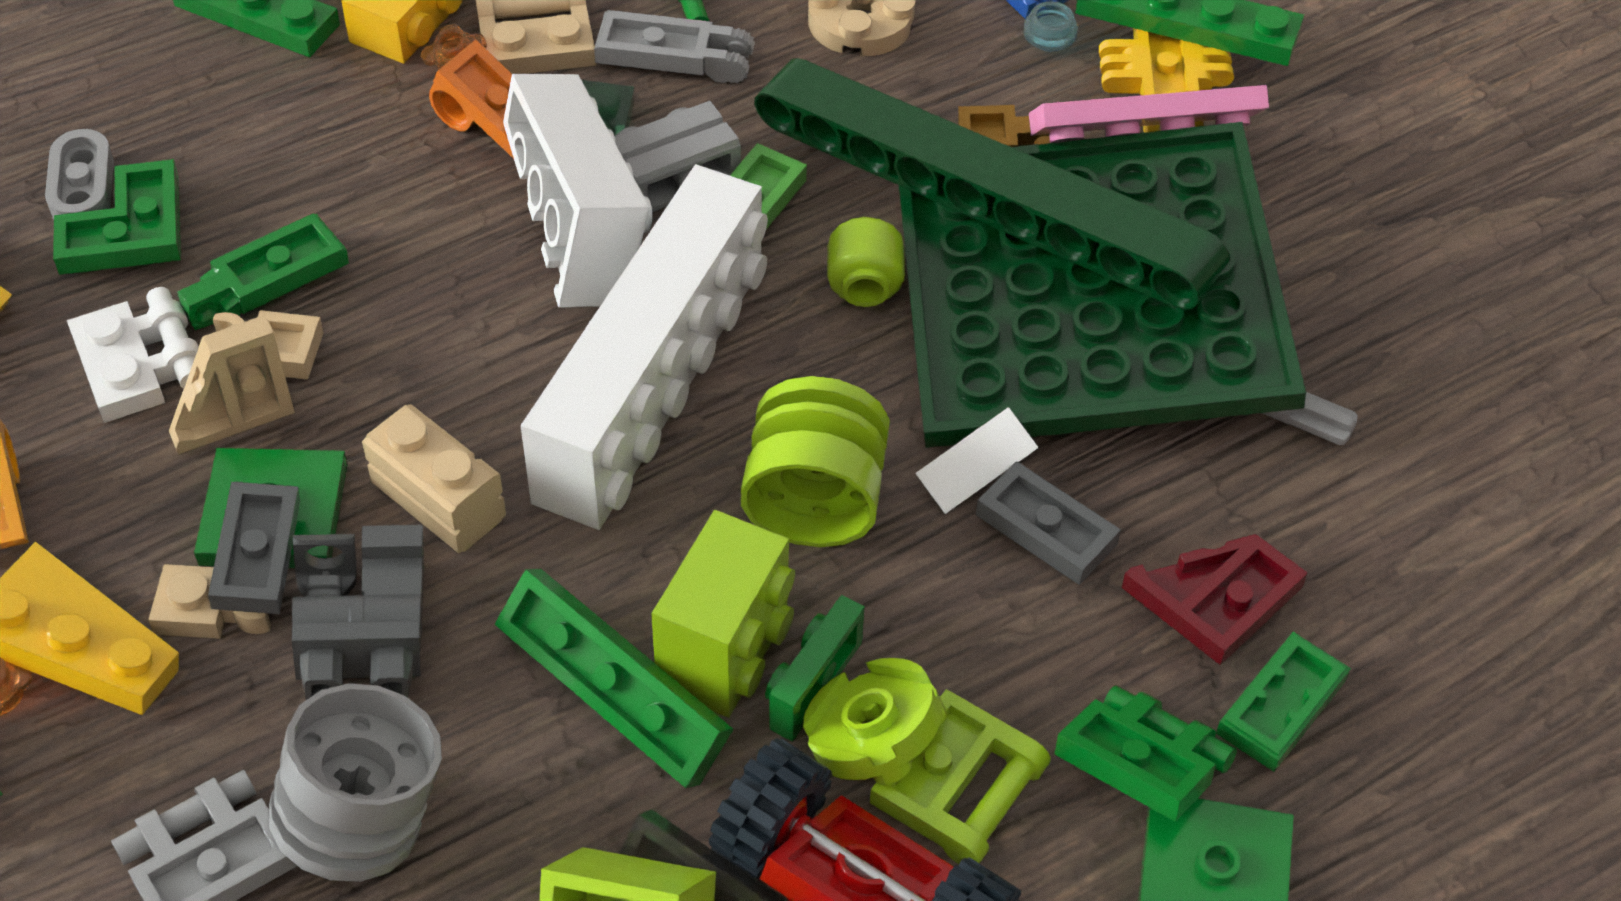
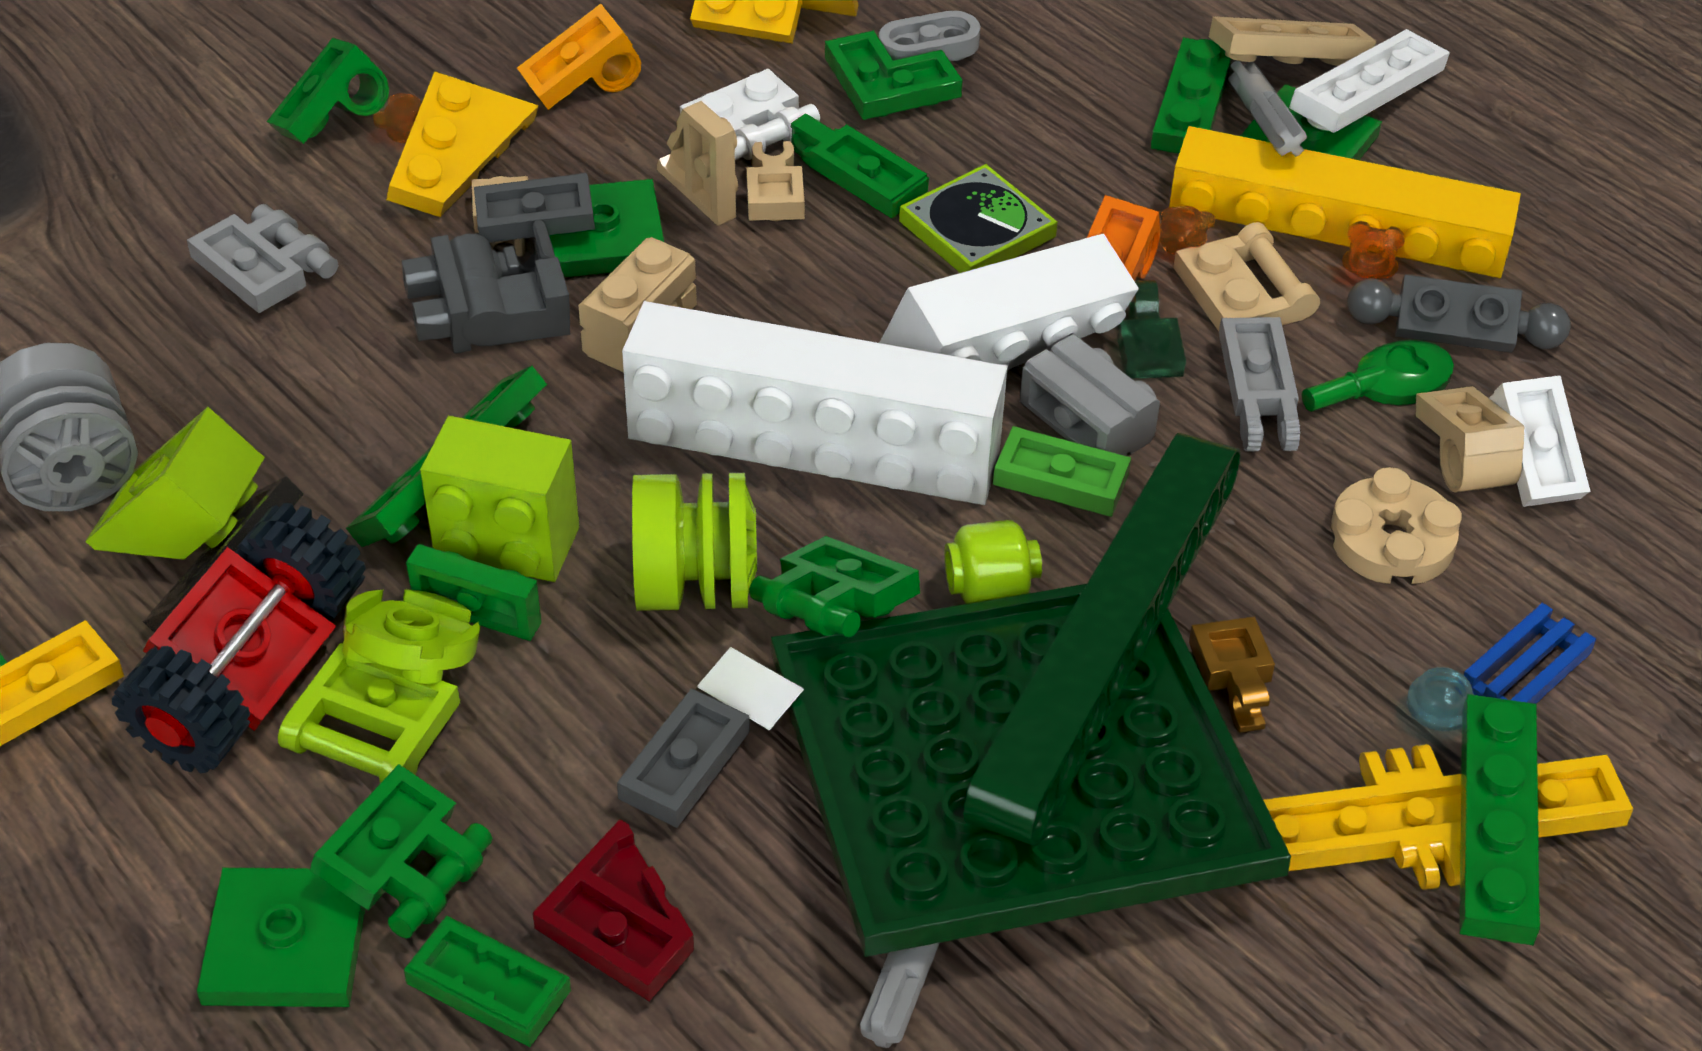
camera: 80 degrees right, 5 degrees down
(353, 782) = (298, 297): light grey wheel -> none
(381, 197) = (977, 220): none -> tile
(877, 351) = (830, 582): none -> green plate
(1126, 114) = (1295, 795): bright pink plate -> none

